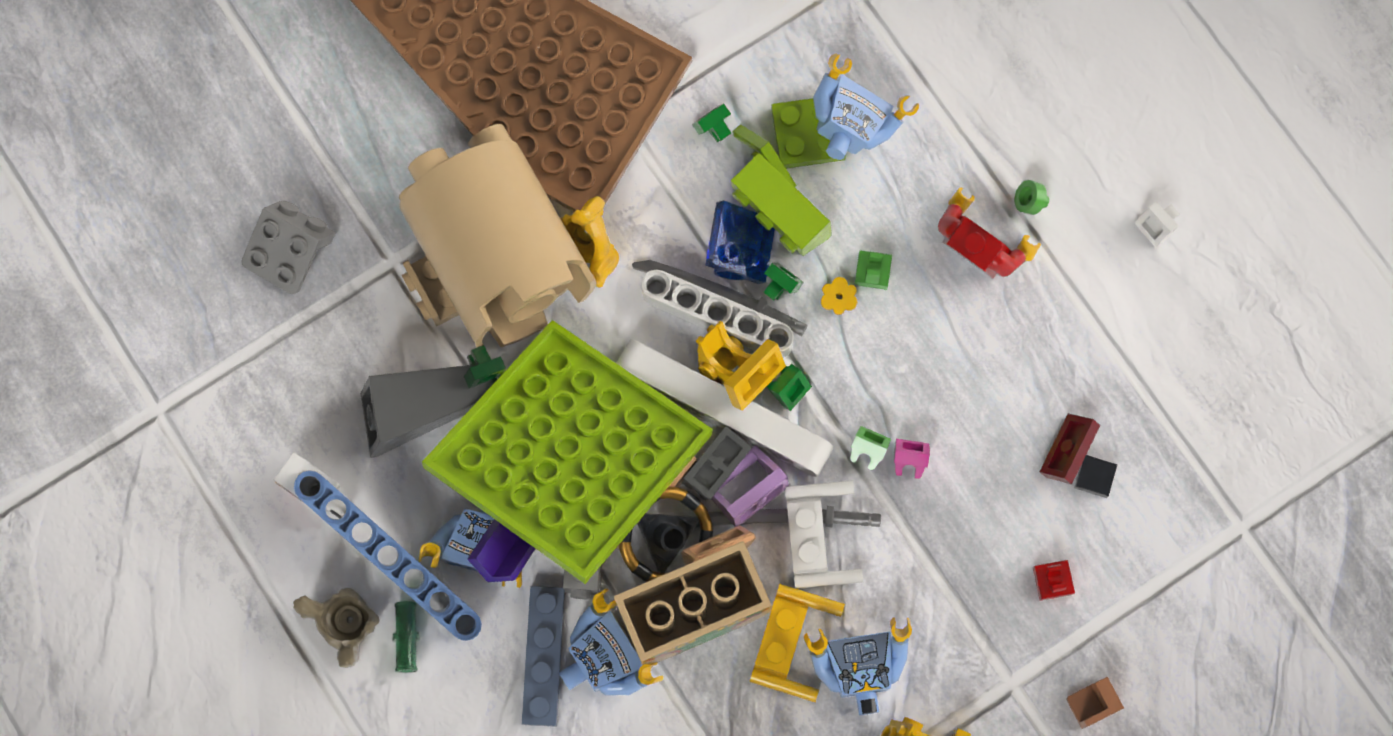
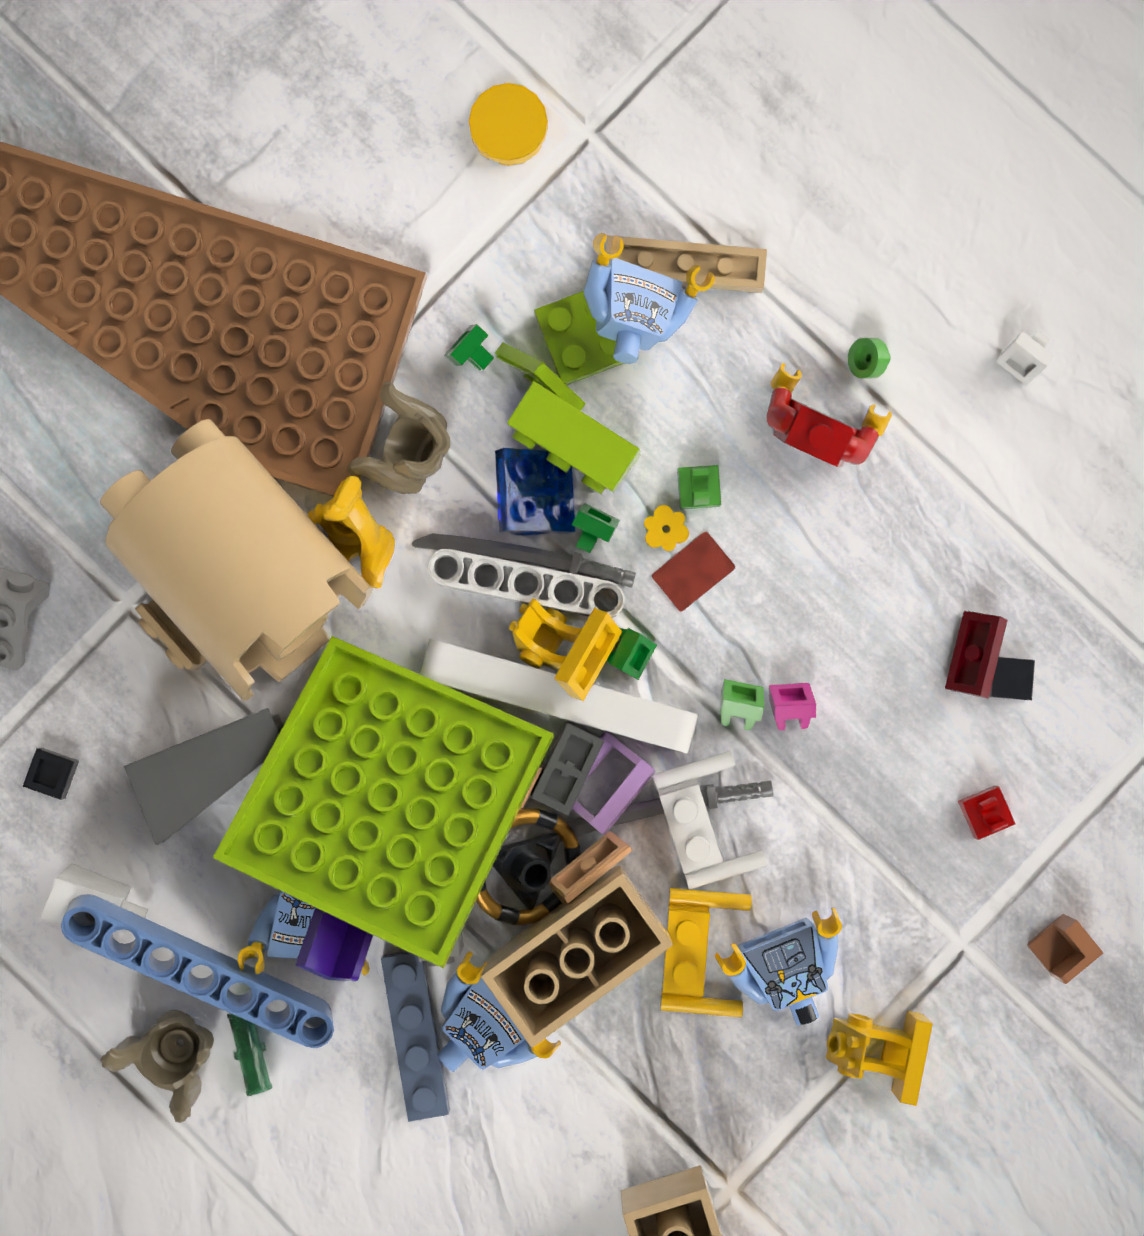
camera: 10 degrees left, 10 degrees up
(299, 381) = (50, 773): none -> black tile
(482, 367) = (260, 721): dark green tile -> none
(649, 189) = (412, 446): none -> dark tan hair
(854, 336) = (693, 571): none -> clear red sticker
(935, 104) = (732, 266): none -> tan plate

